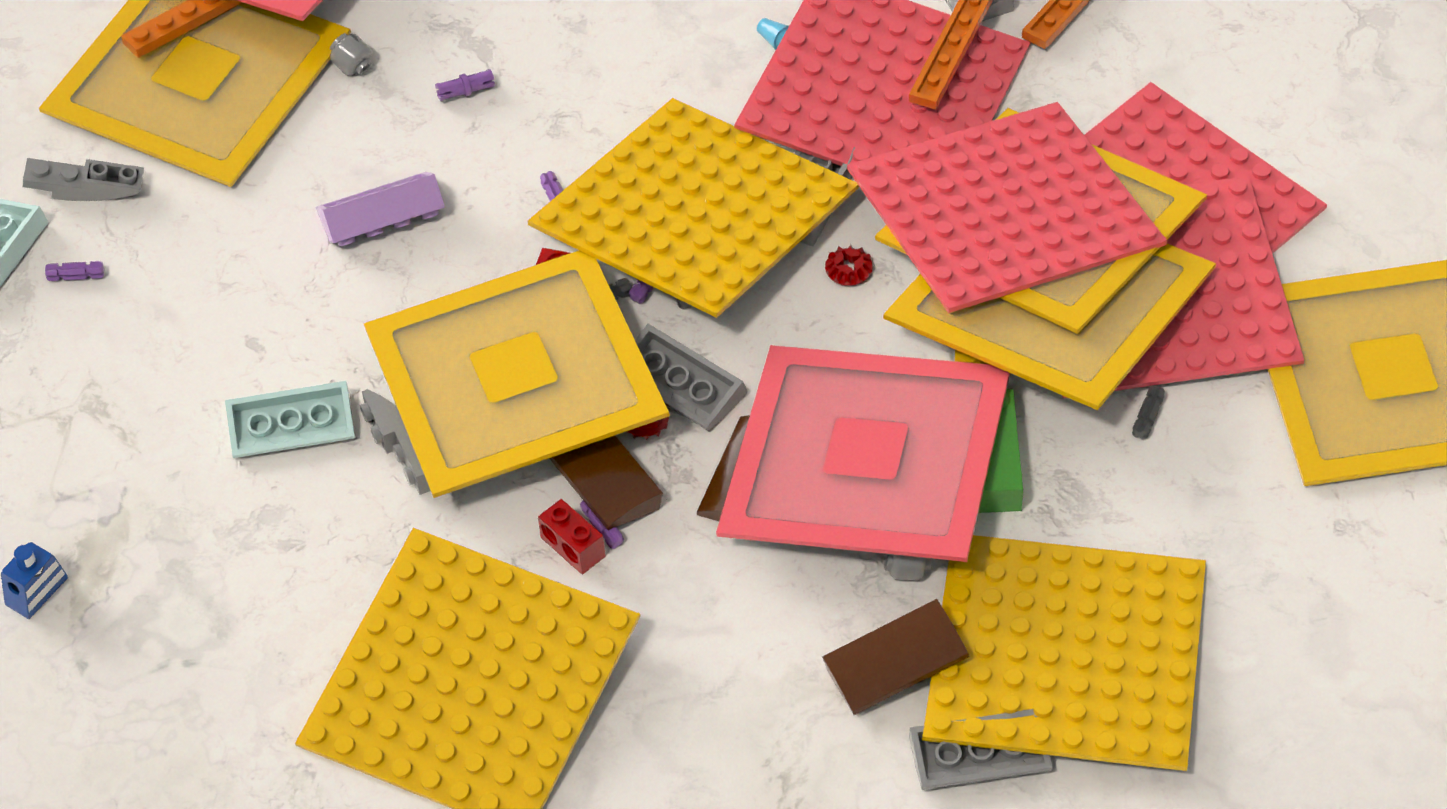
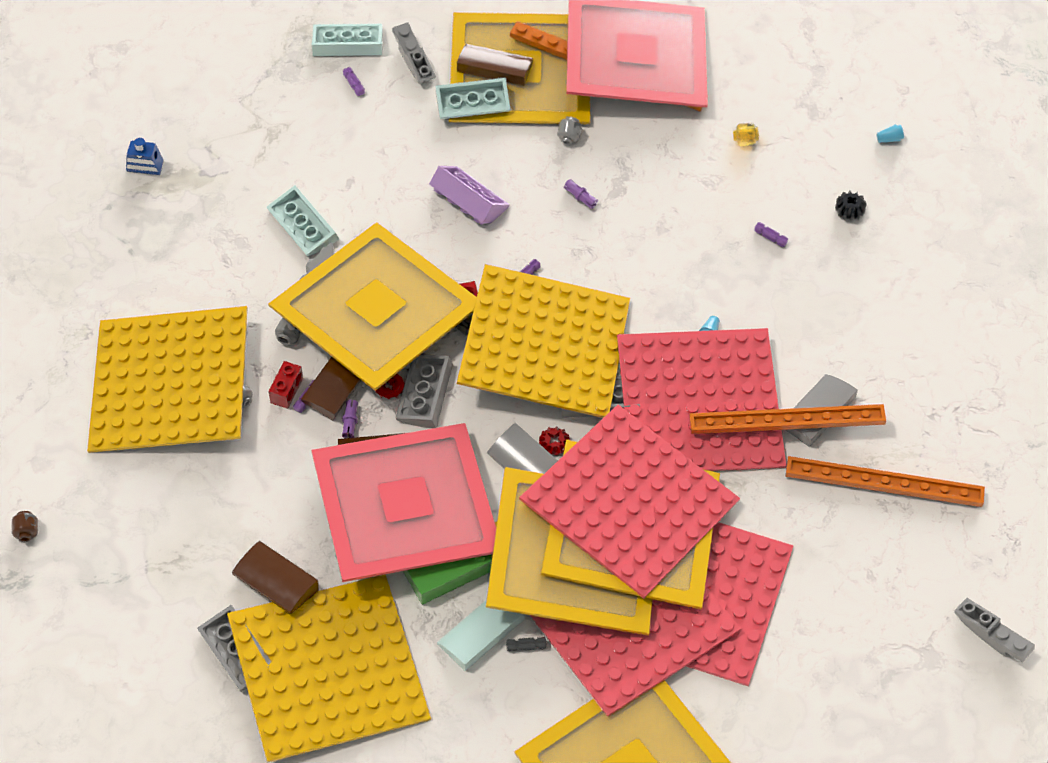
camera: 60 degrees right, 5 degrees up
(174, 92) = (494, 64): none -> reddish brown slope
(219, 138) = (472, 98): none -> light aqua slope
(479, 502) = (287, 333): none -> light grey head
(676, 484) = (350, 419): none -> medium lavender pin
(856, 305) = (520, 451): none -> light grey slope
(1101, 456) = (478, 634): none -> light aqua slope

